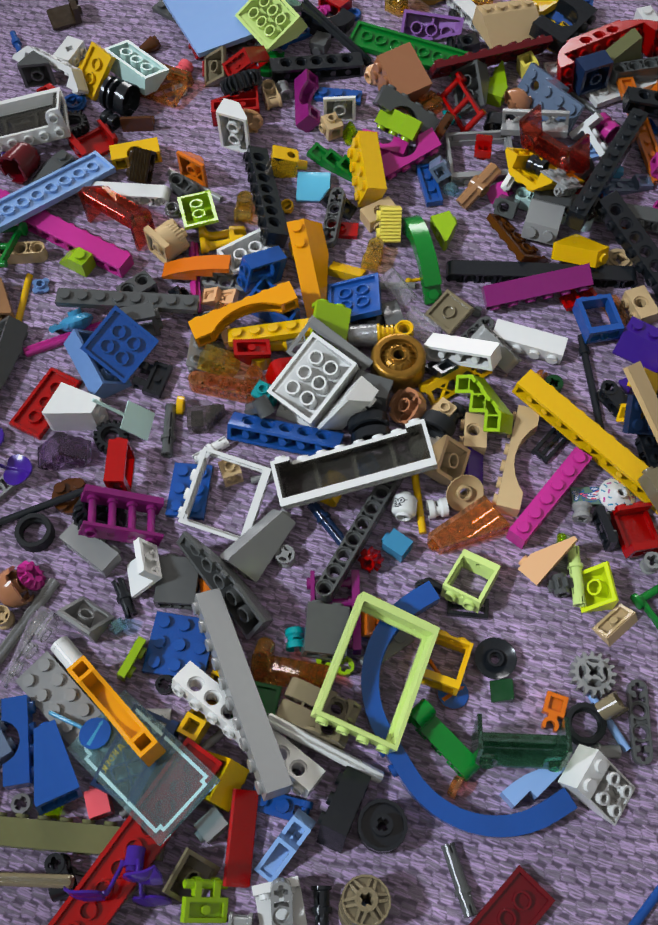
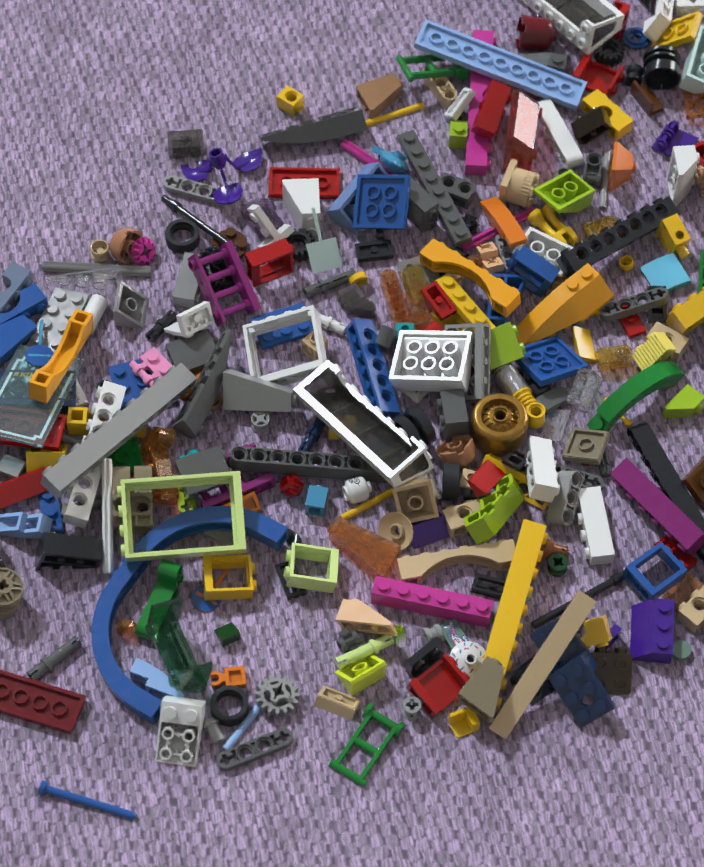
camera: 60 degrees right, 5 degrees down
(44, 288) = (416, 122): medium blue plate -> none
(53, 244) = (460, 104): none -> white tile
(81, 220) = (491, 109): none -> red wedge
(92, 449) = (267, 227): none -> white bracket
(119, 625) = (135, 333): clear light blue plate -> none
(136, 652) = (106, 353): lime plate -> none
(171, 621) = (151, 361): none -> bright pink plate
(191, 125) = (671, 137): none -> dark purple hinge
(351, 402) = (427, 397): white slope -> none
(383, 812) = (67, 584): black wheel -> none
(437, 508) = (370, 517): white wheel -> none
(453, 396) = (485, 478): none -> red slope
(495, 648) = (252, 607): black dish -> none
(611, 706) = (253, 716): dark tan piece -> none

